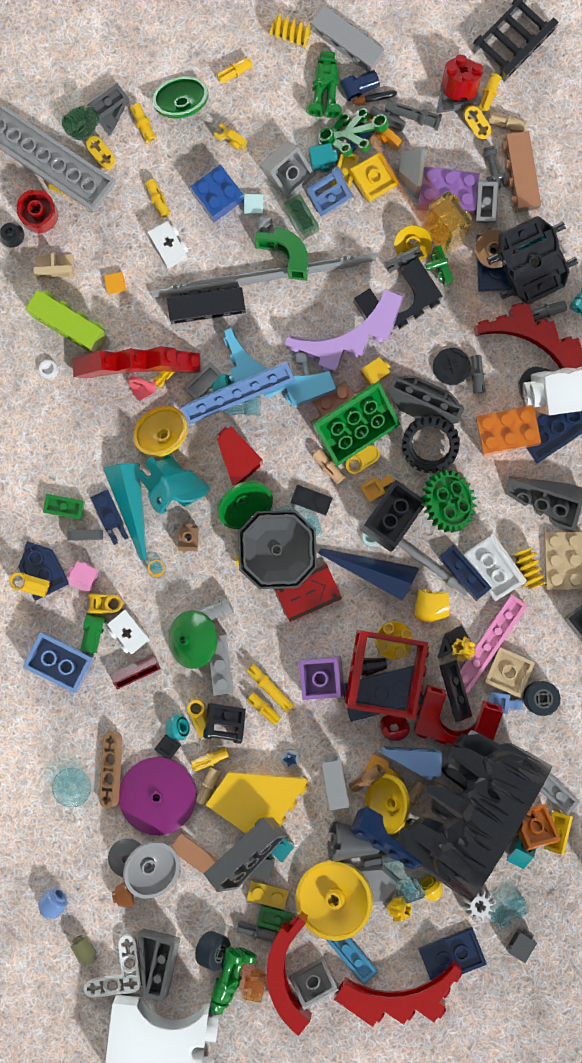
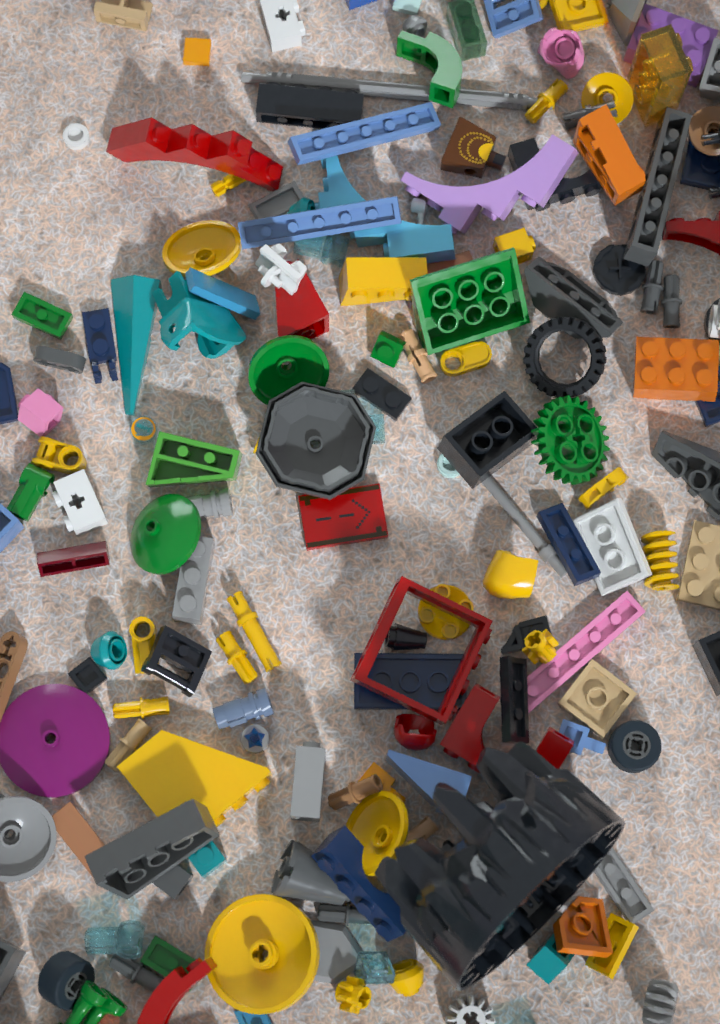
camera: 15 degrees right, 10 degrees down
(67, 323) = (116, 76): lime brick -> none
(141, 388) = (193, 187): coral piece -> none
(184, 461) = (222, 293): none -> dark azure tile
(191, 545) = (199, 409): medium nougat brick -> none
(195, 584) = (191, 461): none -> bright green wedge
(219, 440) = (277, 270): none -> white hips
(241, 915) = (122, 940): none -> clear light blue piece
(250, 317) = (363, 133): none -> medium blue plate
(267, 894) = (168, 924): yellow plate -> none
(276, 743) = (243, 709): none -> sand blue axle
(290, 421) = (378, 279): none -> yellow wedge
(307, 467) = (388, 349): none -> green plate
(321, 678) = (329, 633): medium lavender brick -> none
(327, 307) = (471, 151): none -> reddish brown torso
(371, 255) = (546, 100): none -> yellow axle
(372, 216) = (562, 51): none -> bright pink hair
(374, 489) = (471, 399): light orange plate -> none
(386, 575) = (459, 522): dark blue wedge -> none
(426, 291) = (608, 155): none -> orange wedge
(441, 262) = (638, 128): green plate -> none
(464, 301) = (658, 187): none -> dark grey brick
(479, 527) = (604, 486): none -> yellow piece
(493, 381) = (671, 302): none -> dark grey axle

